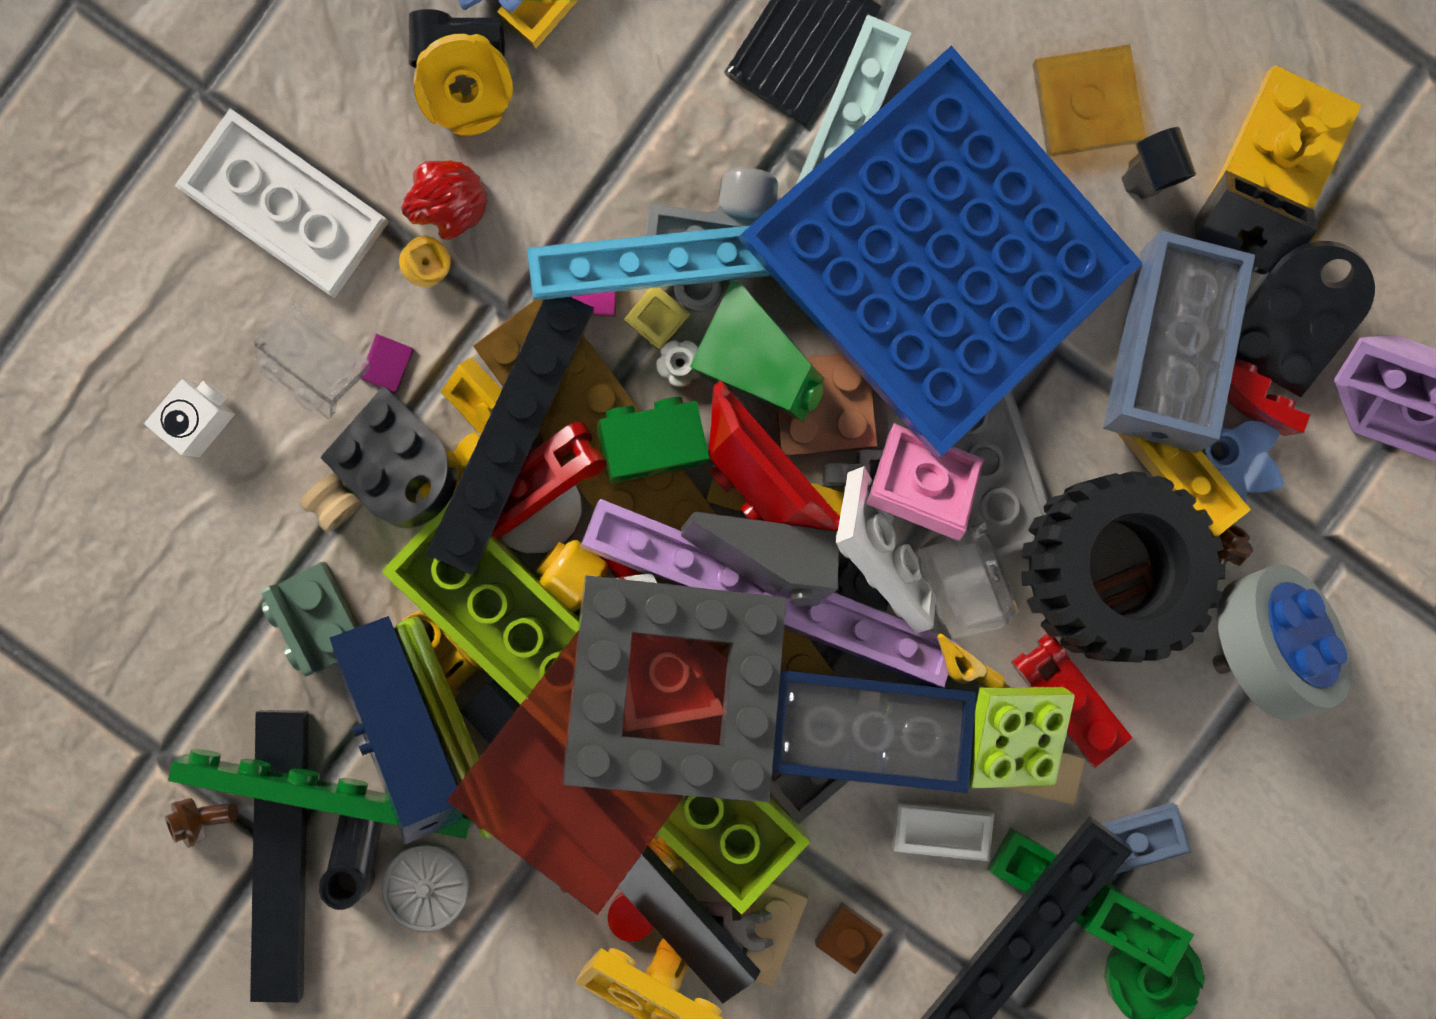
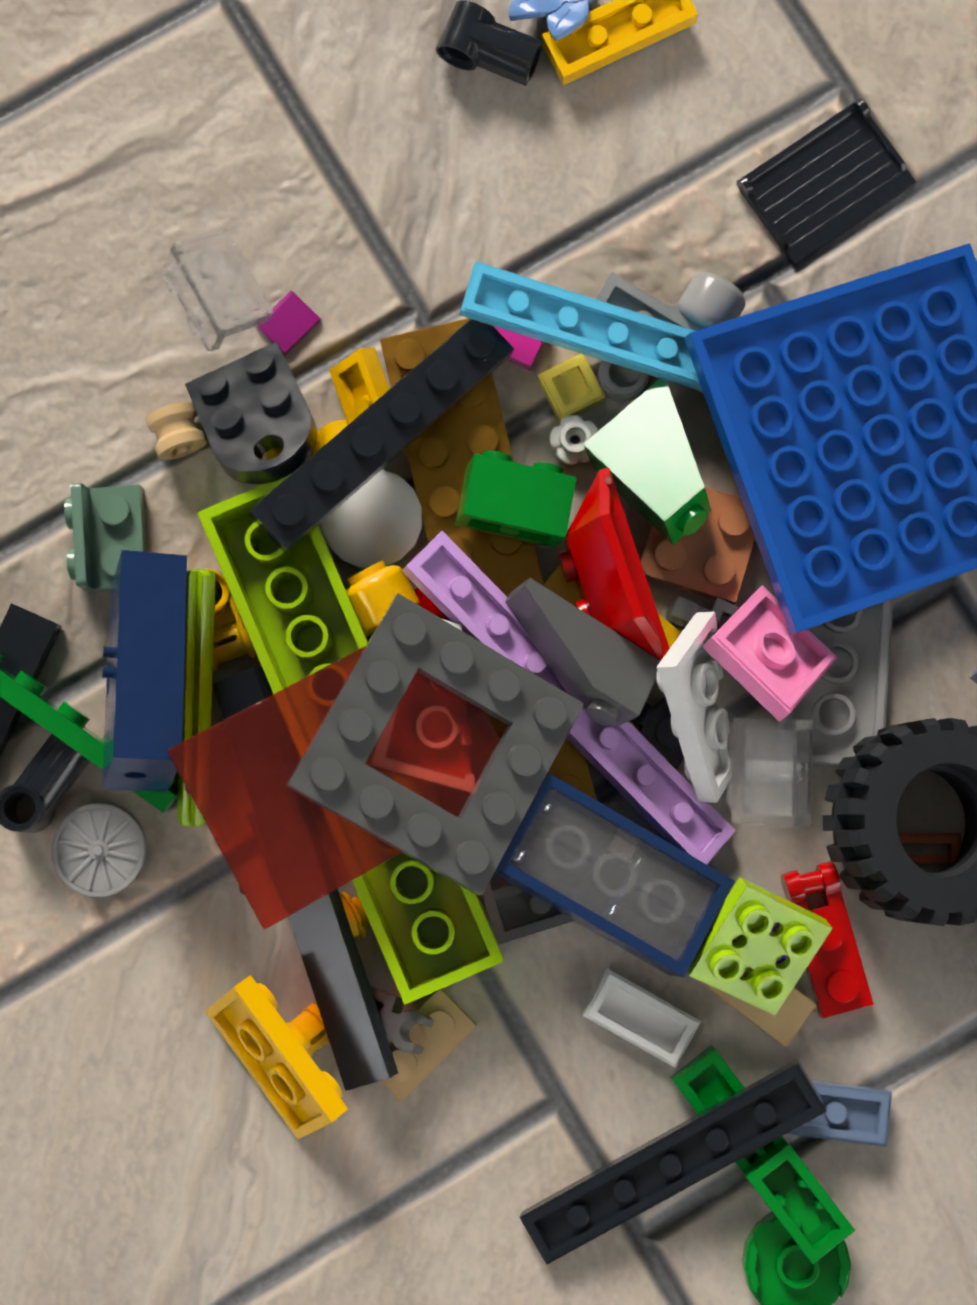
camera: 30 degrees right, 5 degrees down
(191, 417) = (78, 293): white brick -> none
(282, 203) = (256, 130): white tile -> none
(424, 261) = (368, 240): yellow tile -> none
(445, 196) = (417, 186): red hair -> none
(469, 57) = (501, 67): yellow plate -> none
(548, 477) = (399, 491): red plate -> none
(627, 921) = (286, 969): red tile -> none
(848, 938) = (499, 1085): reddish brown plate -> none
(860, 87) = (868, 245): light aqua plate -> none
(971, 666) = (740, 860): yellow hand -> none

